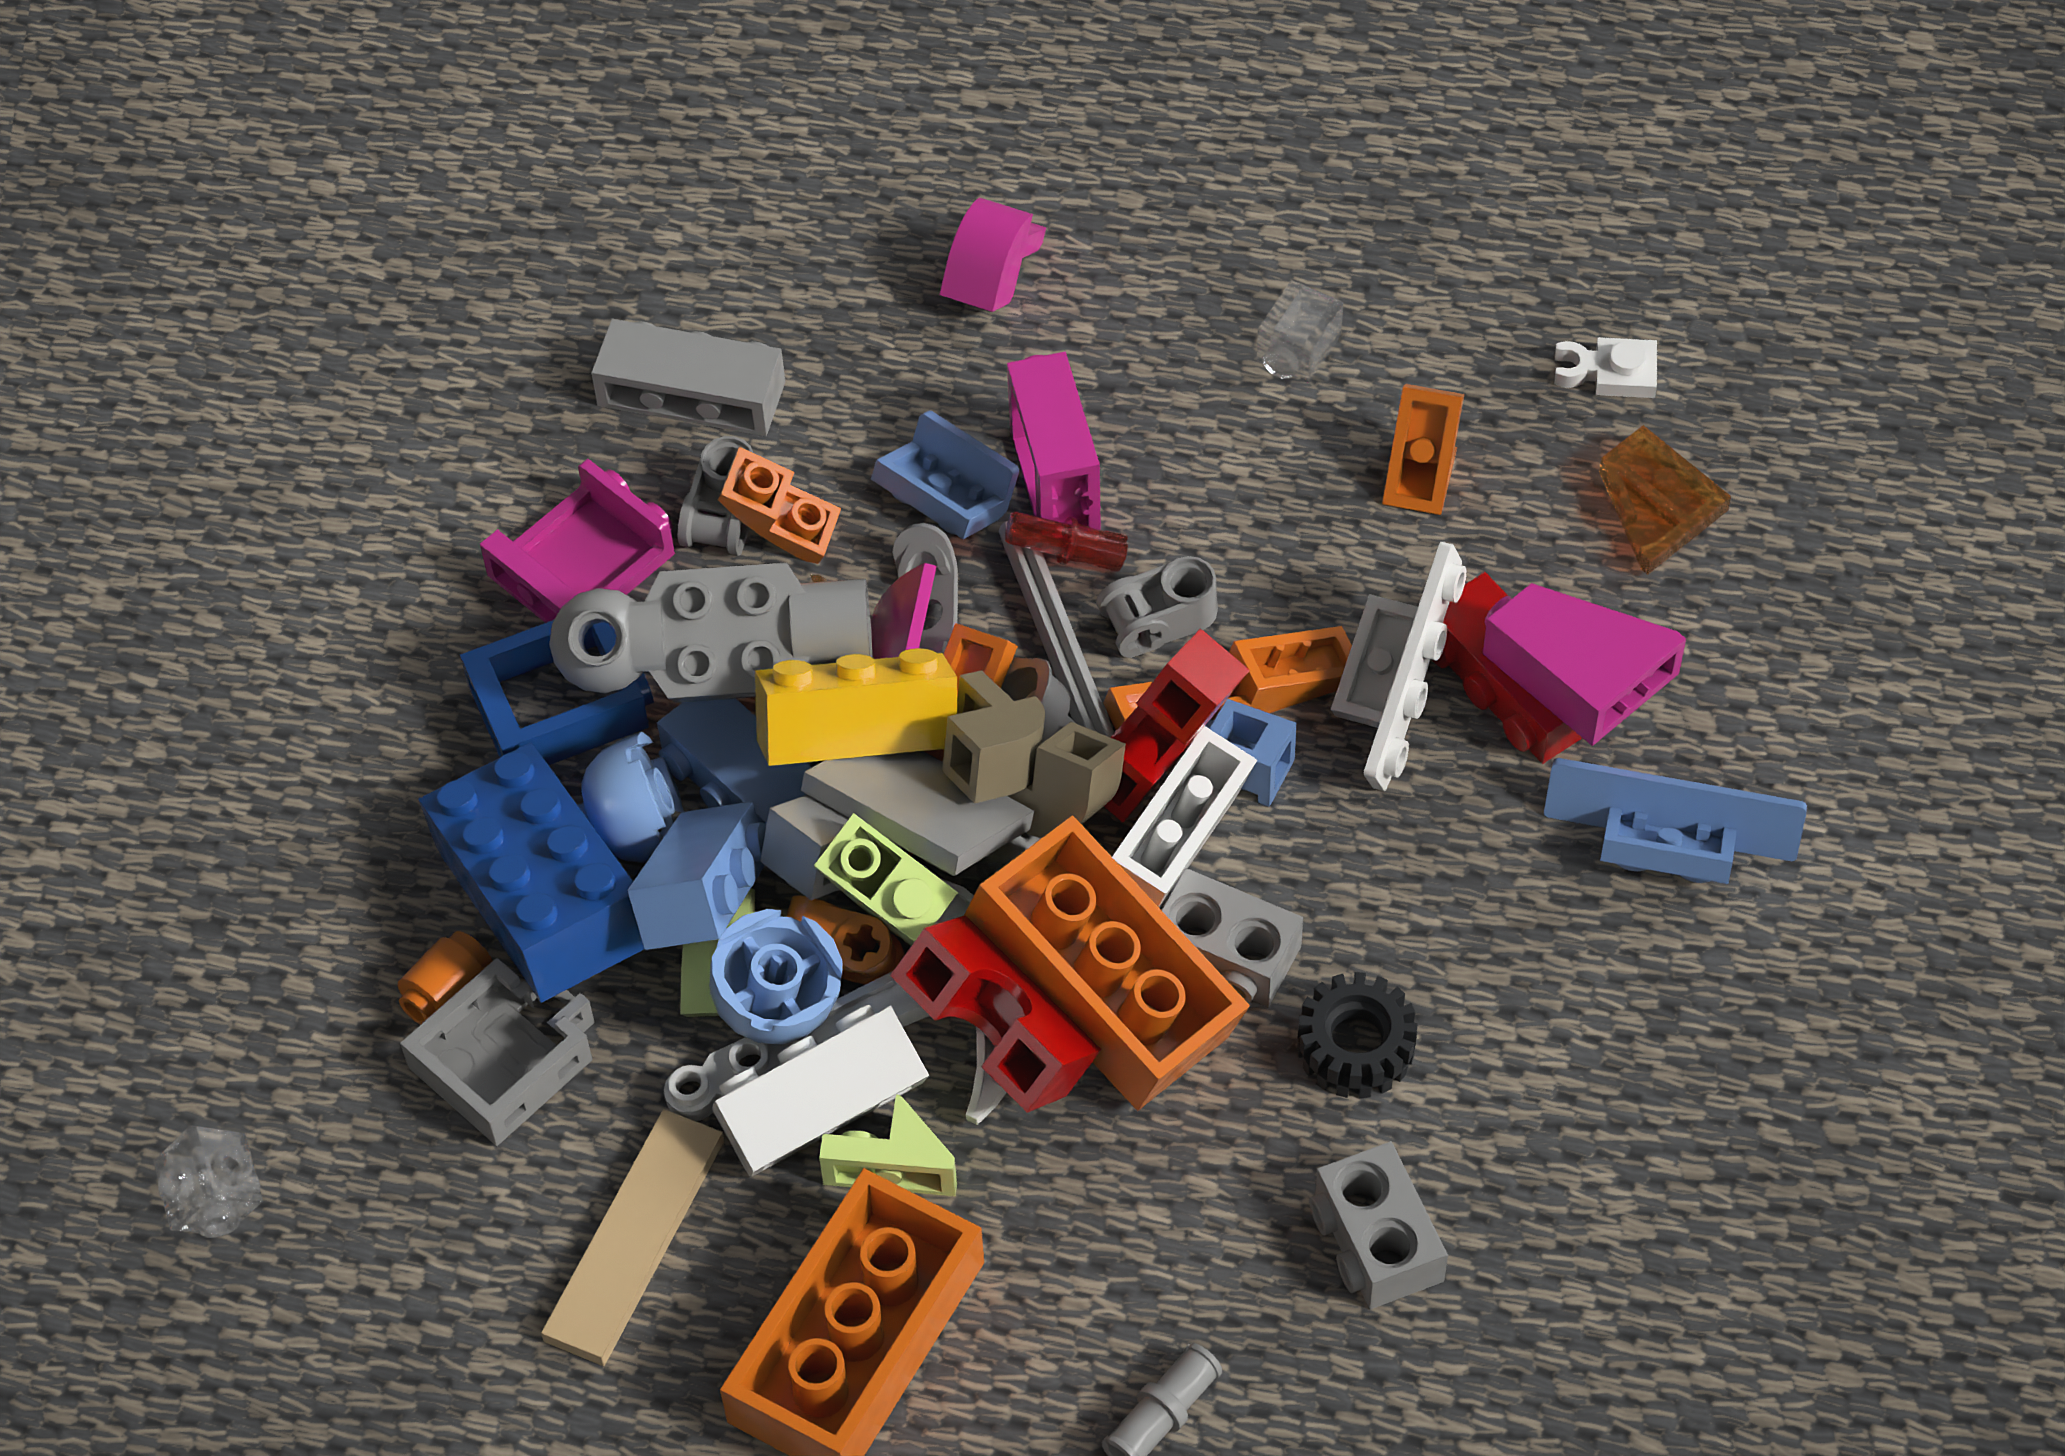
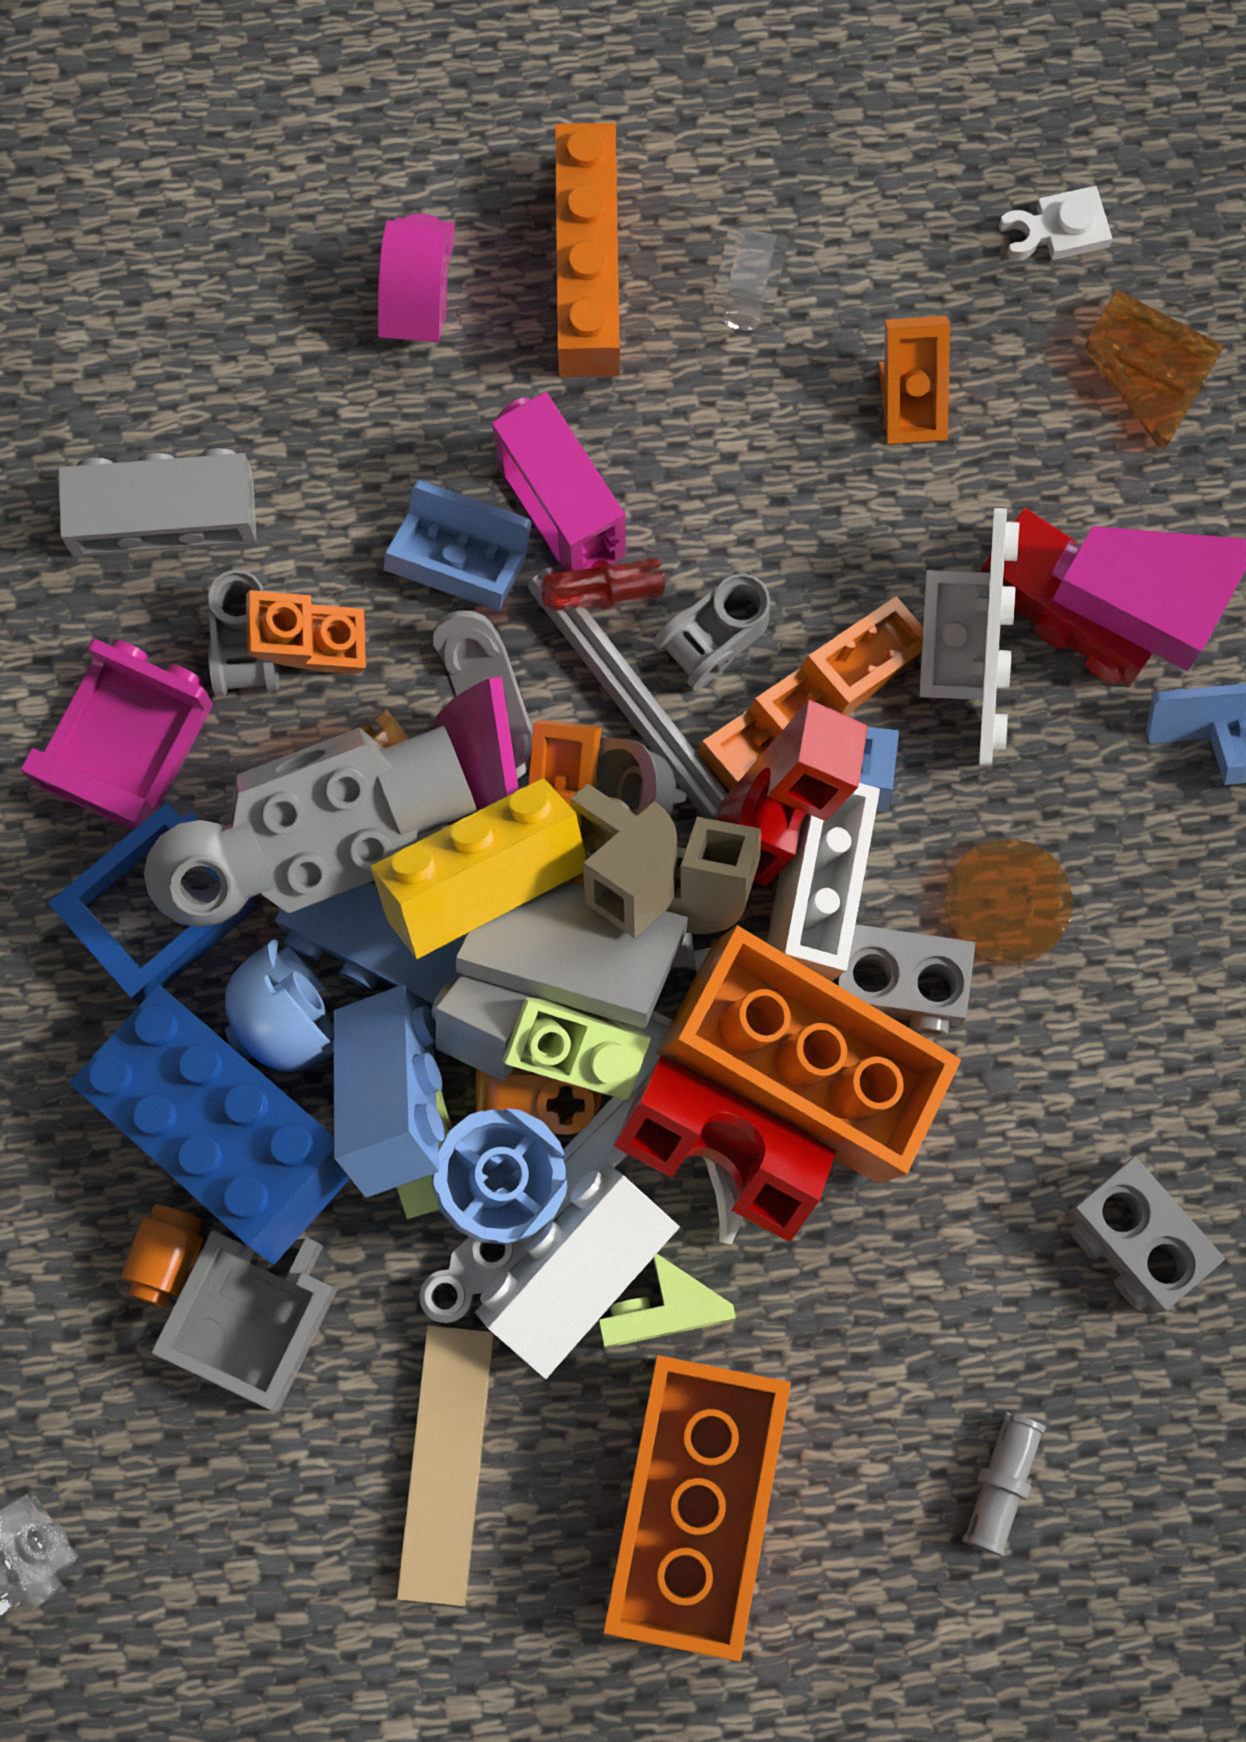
camera: 20 degrees left, 20 degrees up
(1155, 274) = (587, 250): none -> orange brick
(1356, 909) = (1008, 901): none -> clear orange tile
(1363, 1002) = (1089, 1020): black tyre -> none

